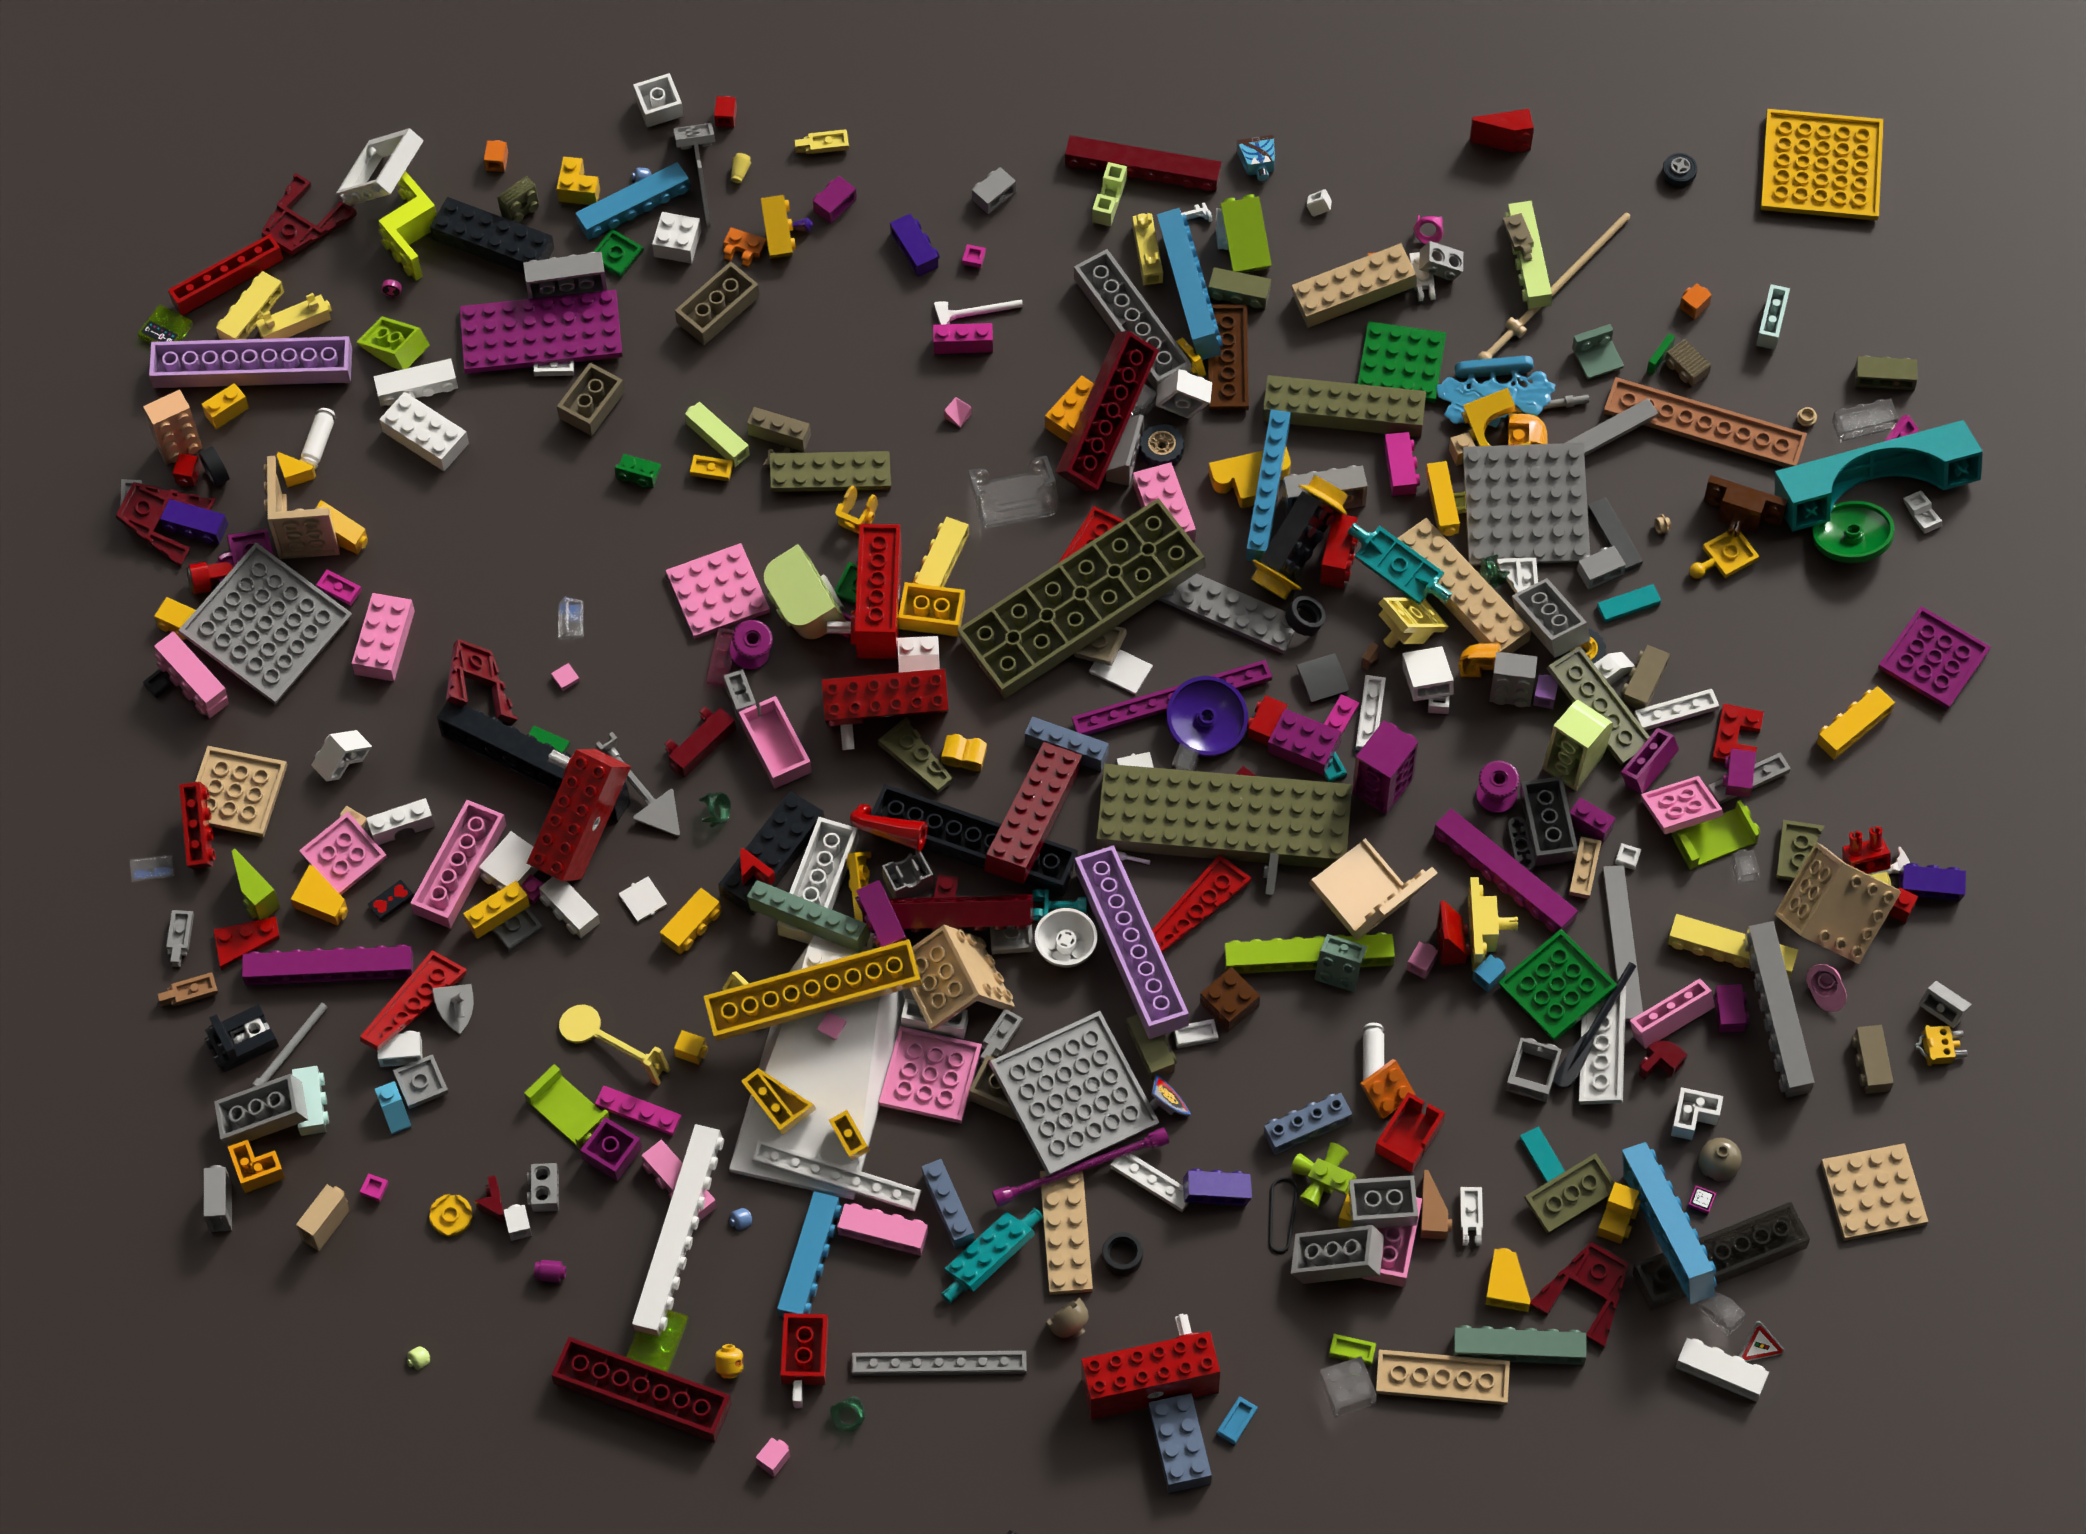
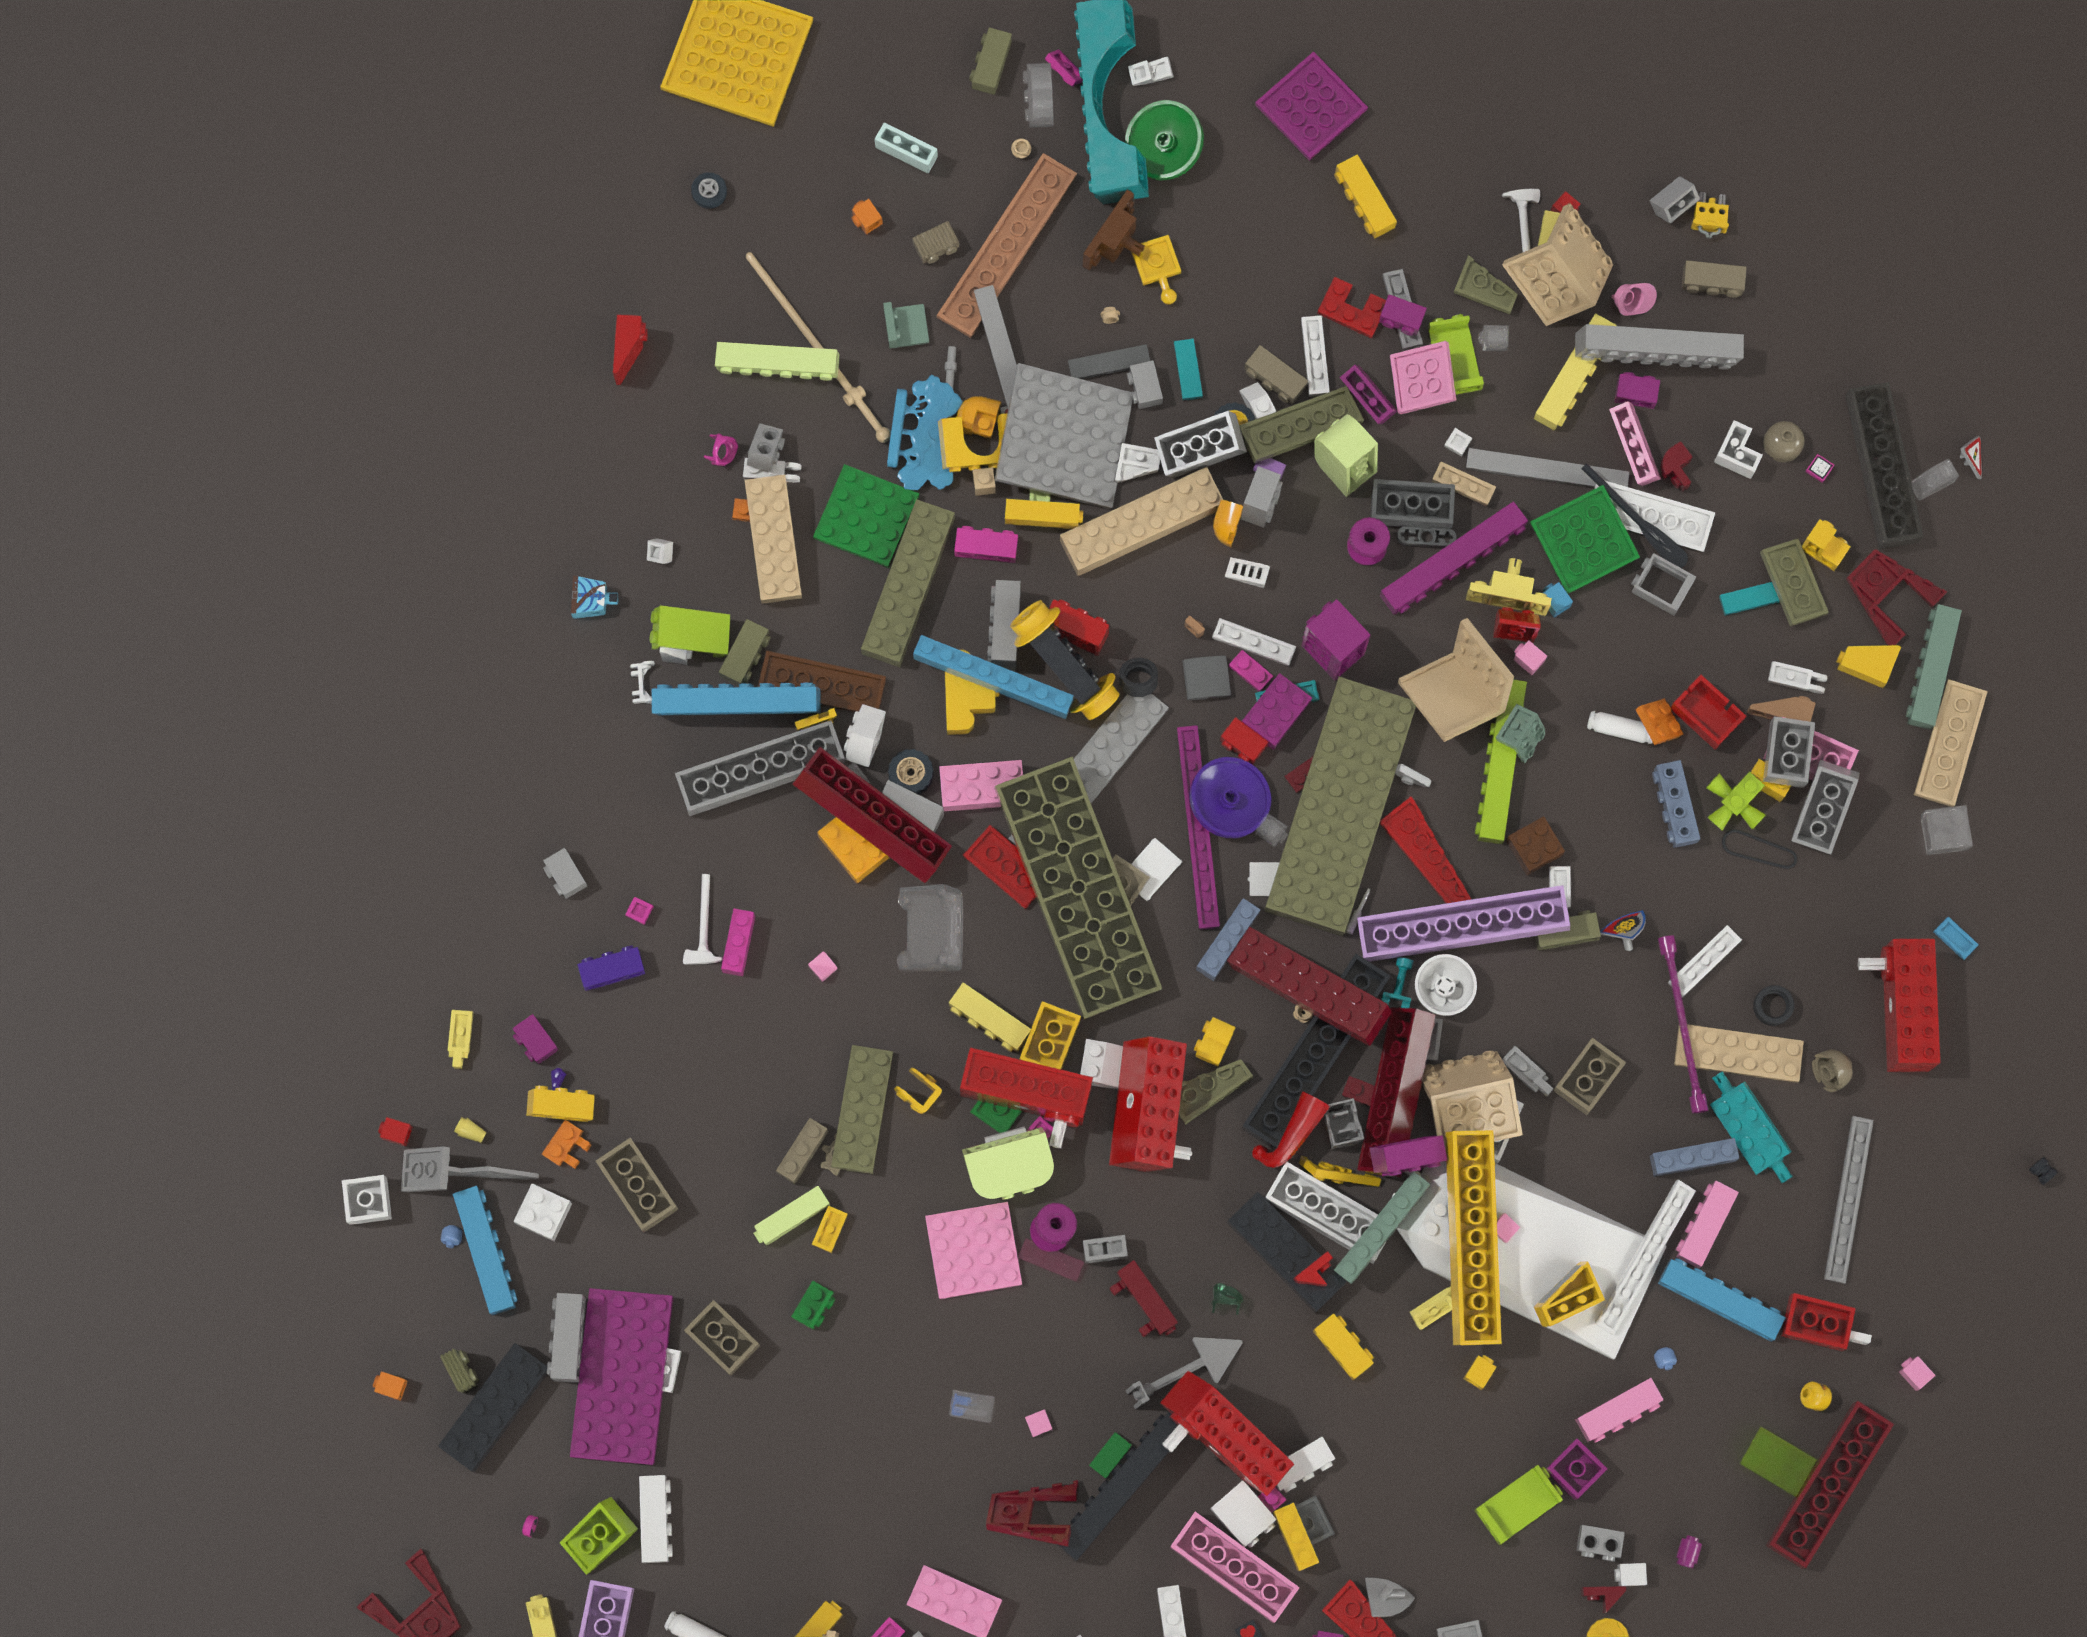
camera: 80 degrees left, 15 degrees up
(401, 147) = (370, 1531): white window -> none
(407, 225) = (459, 1494): neon yellow bracket -> none
(424, 431) = (717, 1520): white brick -> none
(574, 185) = (452, 1309): yellow brick -> none
(583, 1023) = (1431, 1475): light yellow piece -> none
(618, 253) = (542, 1280): green tile -> none
(638, 1110) = (1533, 1436): dark pink plate -> none
(642, 899) = (1305, 1390): white piece -> none
(677, 1230) = (1680, 1419): white brick -> none
(775, 742) = (1166, 1224): bright pink piece -> none
(849, 1135) = (1617, 1235): yellow brick -> none
(853, 1402) = (1875, 1296): clear green piece -> none
(930, 1074) = (1555, 1146): bright pink plate -> none
(1074, 1093) = (1611, 1013): light grey plate -> none
(1108, 200) = (601, 757): yellowish green arch -> none
(1144, 163) = (569, 715): dark red brick -> none
(1147, 249) = (674, 734): light yellow brick -> none
(1179, 1443) = (1977, 994): sand blue brick -> none
(1217, 1187) = (1728, 902): brick -> none
(1350, 1348) = (1906, 817): lime tile -> none
(1399, 564) = (1115, 572): teal plate -> none
(1409, 621) = (1171, 577): light yellow brick -> none
(1428, 673) = (1229, 576): white brick -> none
(1495, 576) = (1134, 485): clear green piece -> none
(1519, 235) = (759, 363): dark tan plate -> none
(1591, 820) = (1418, 463): magenta brick -> none
(1660, 354) = (919, 265): green tile -> none
(1669, 1223) = (1857, 501): dark azure brick -> none
(1722, 1369) = (1990, 494): white brick -> none
(1867, 855) = (1509, 226): red brick -> none
(1874, 1192) = (1841, 315): tan plate -> none
(1933, 881) = (1547, 175): dark purple brick -> none

